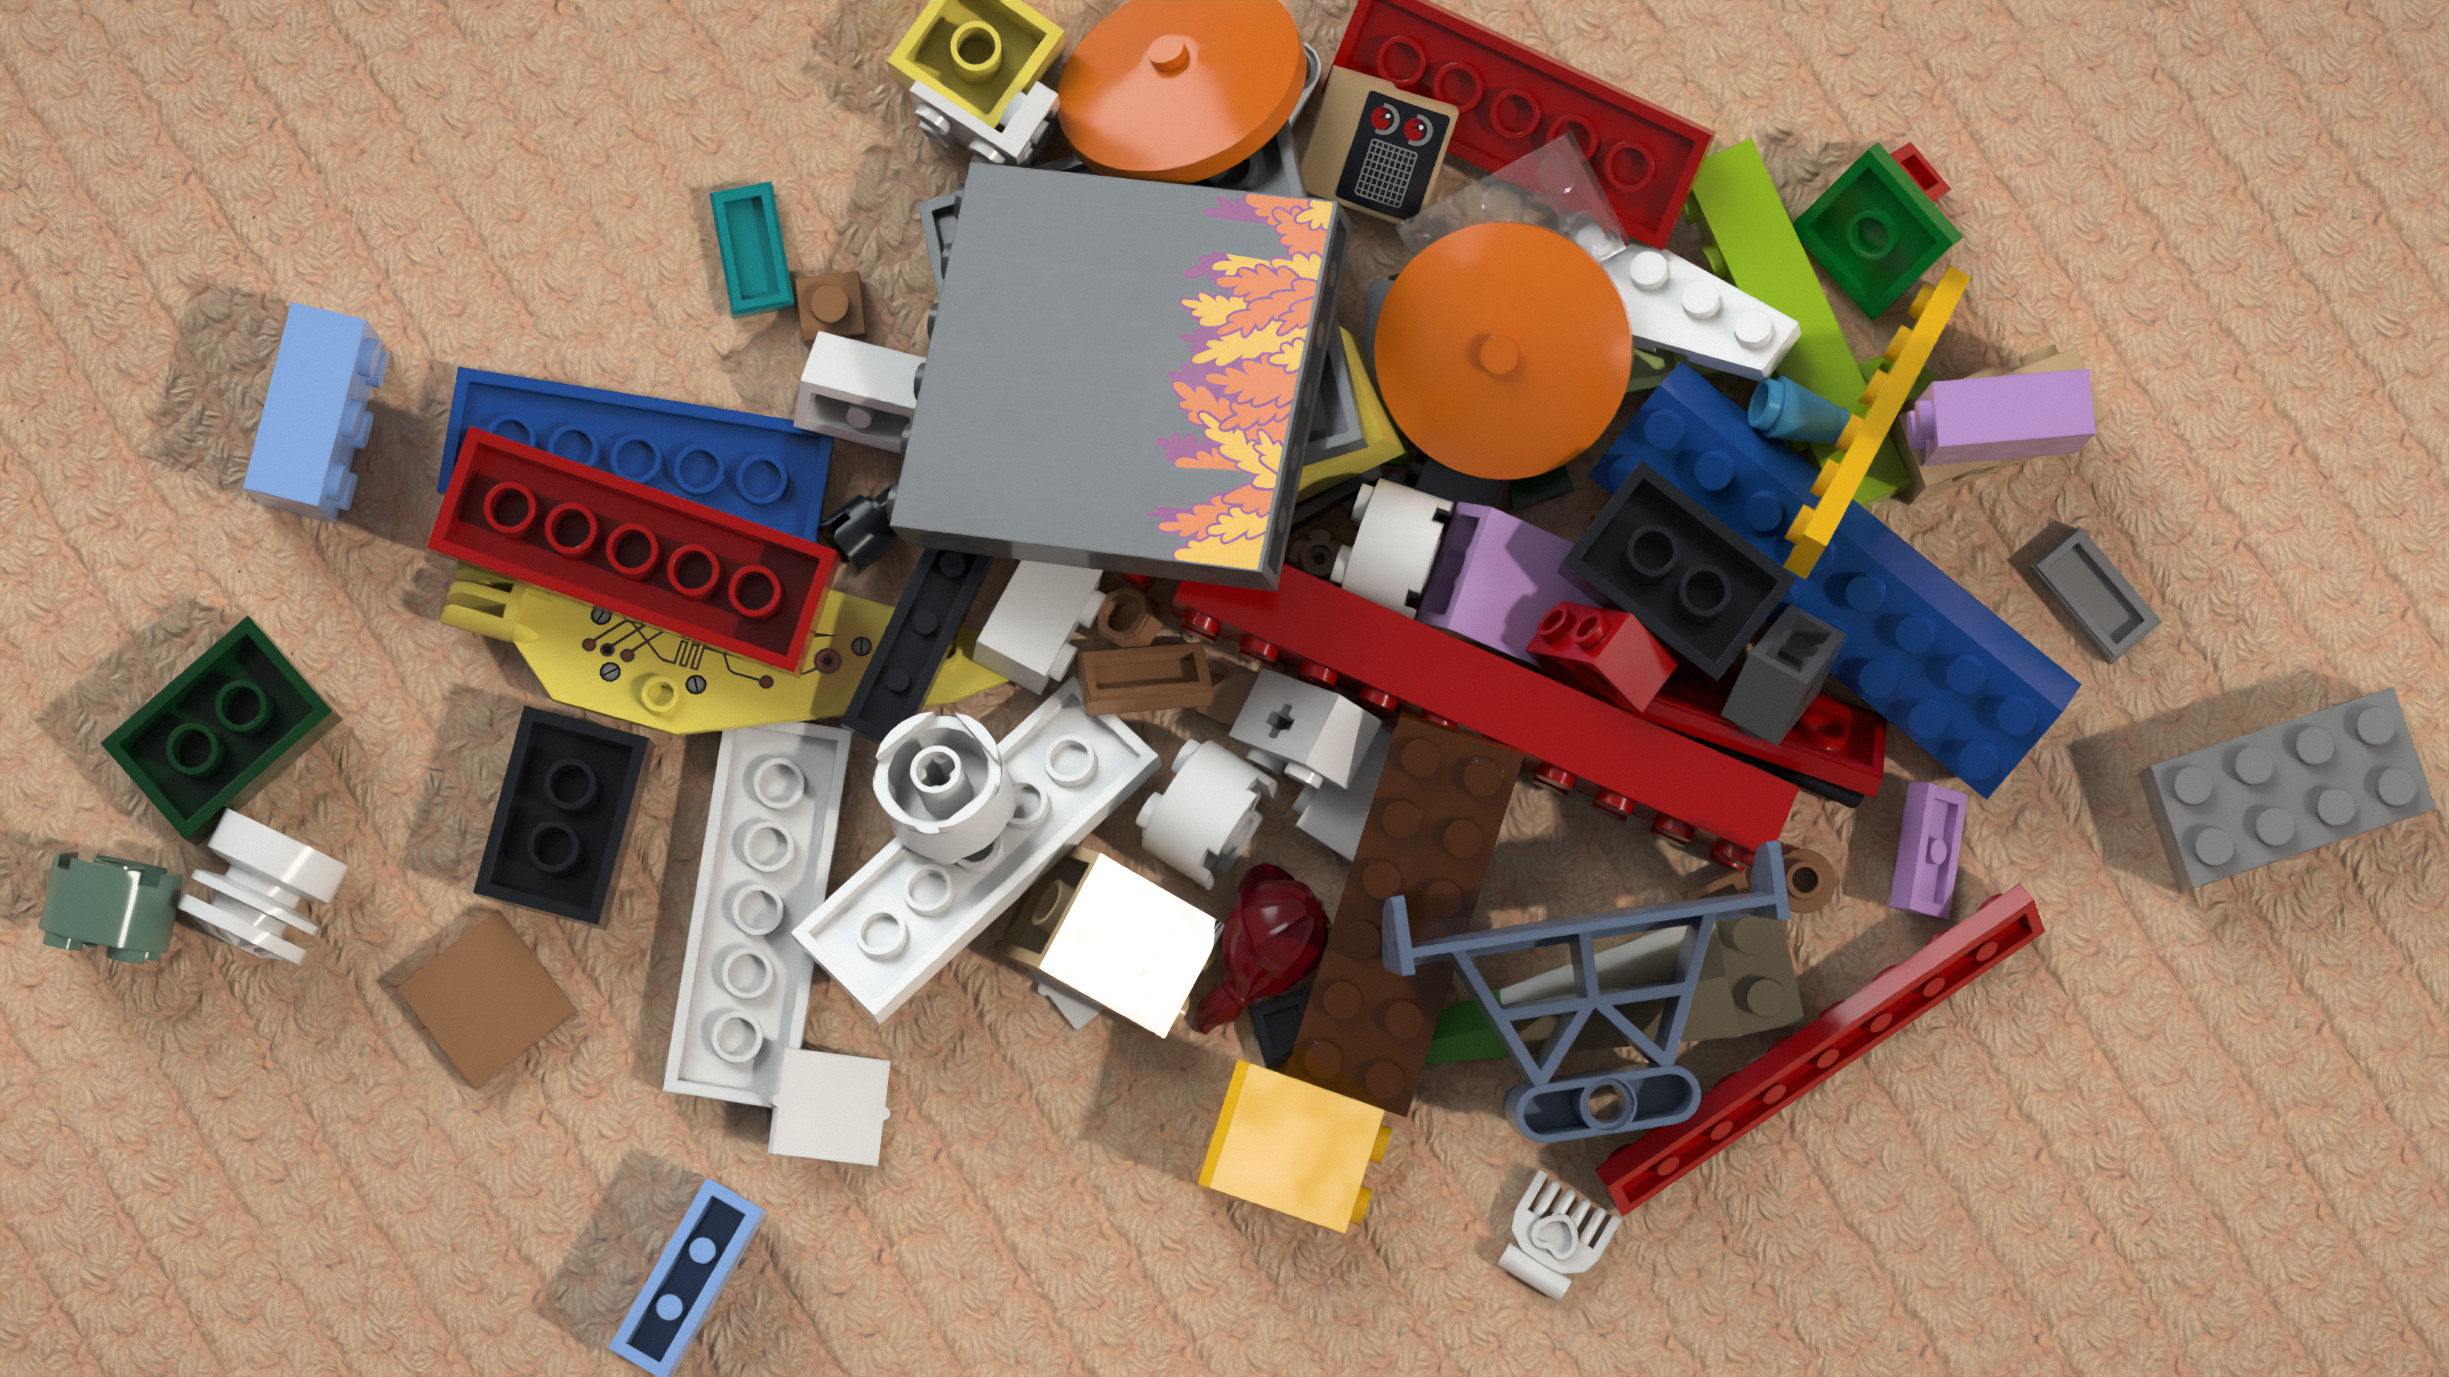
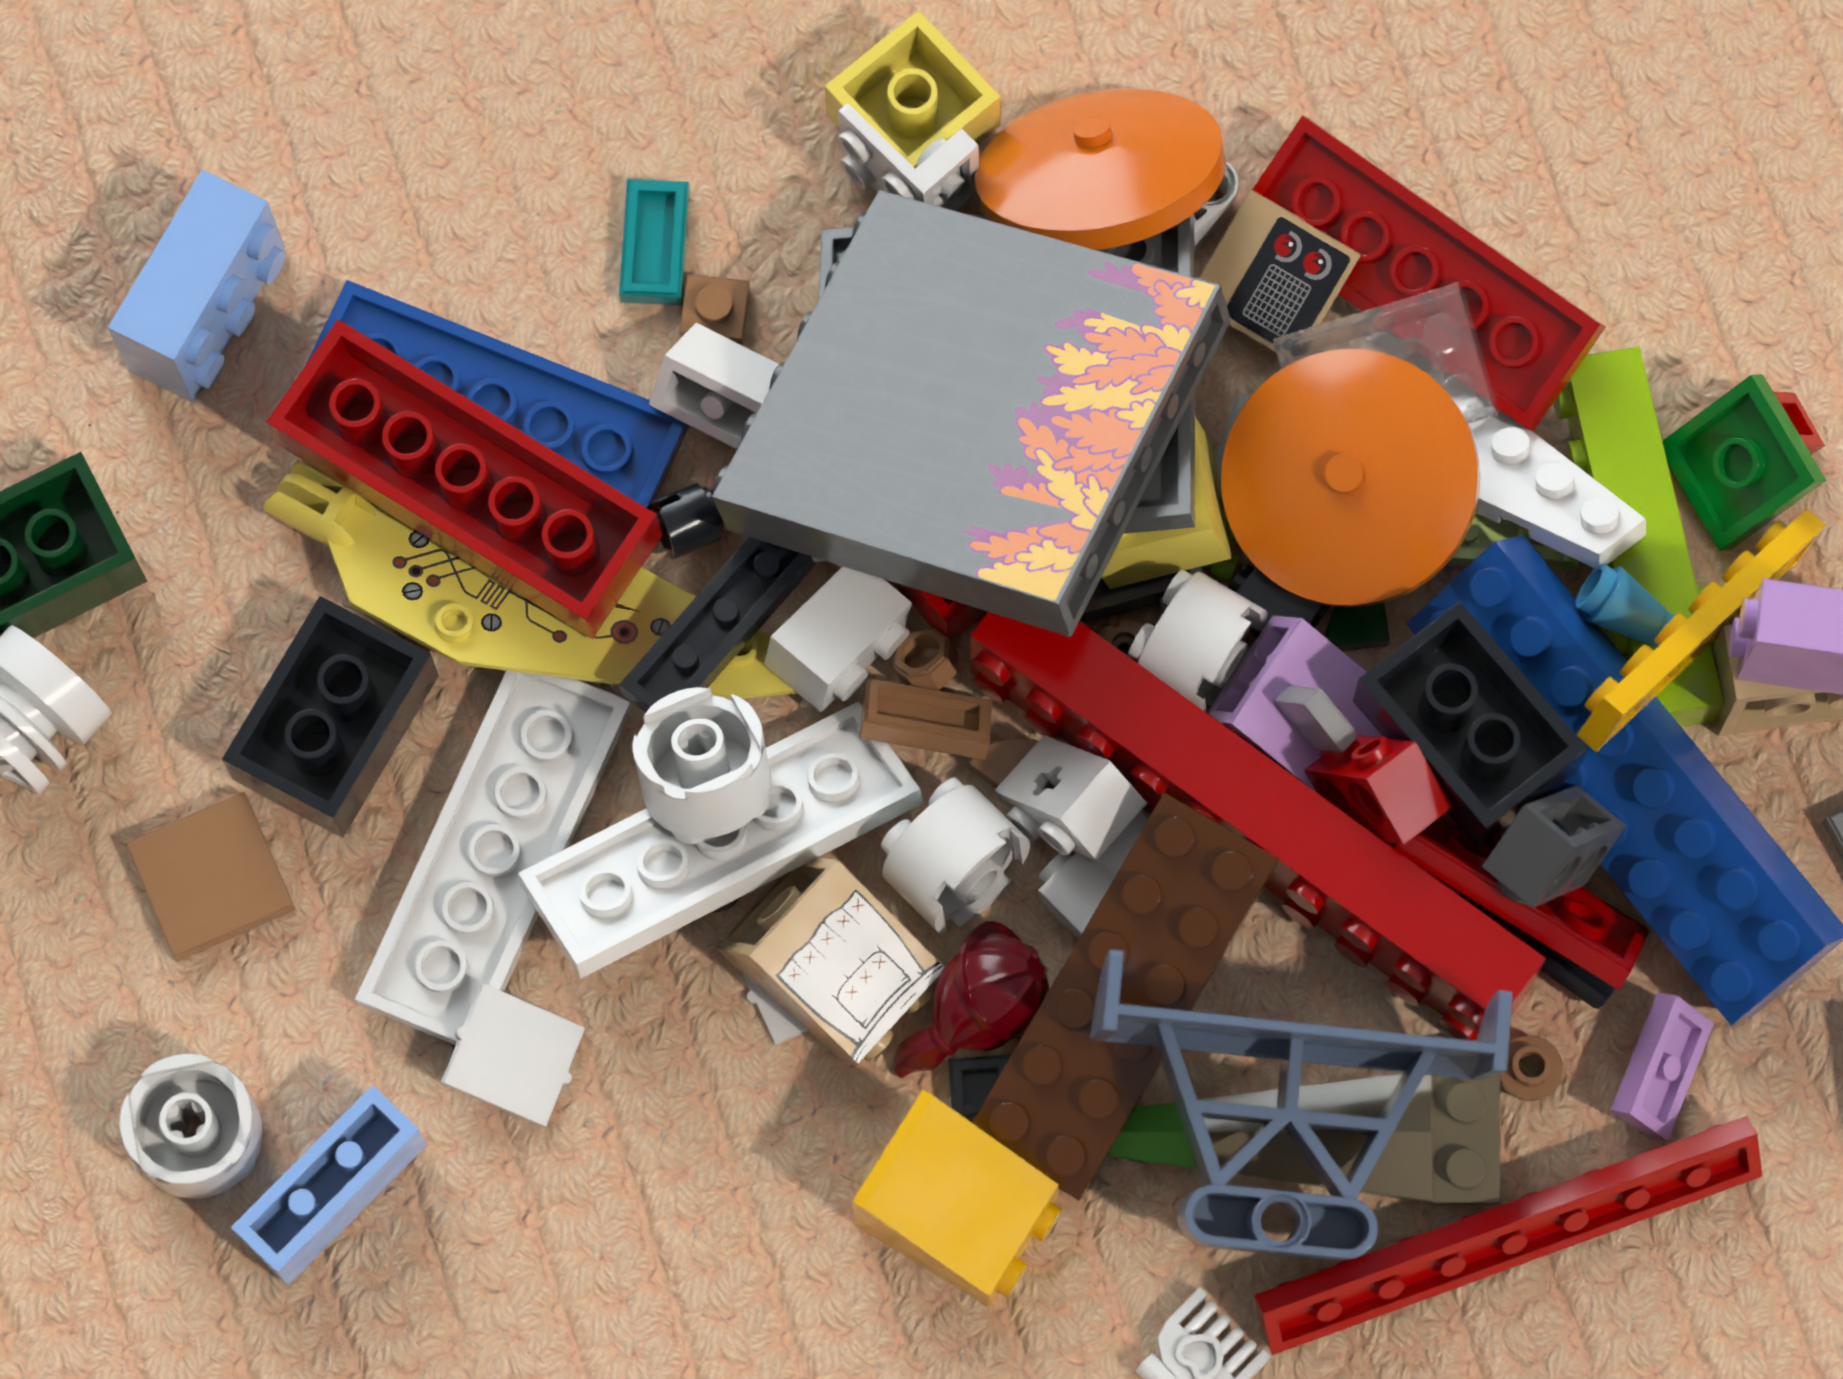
camera: 20 degrees right, 10 degrees down
(505, 1241) = (159, 1110): none -> white brick
(1527, 603) = (1316, 718): none -> light grey tile

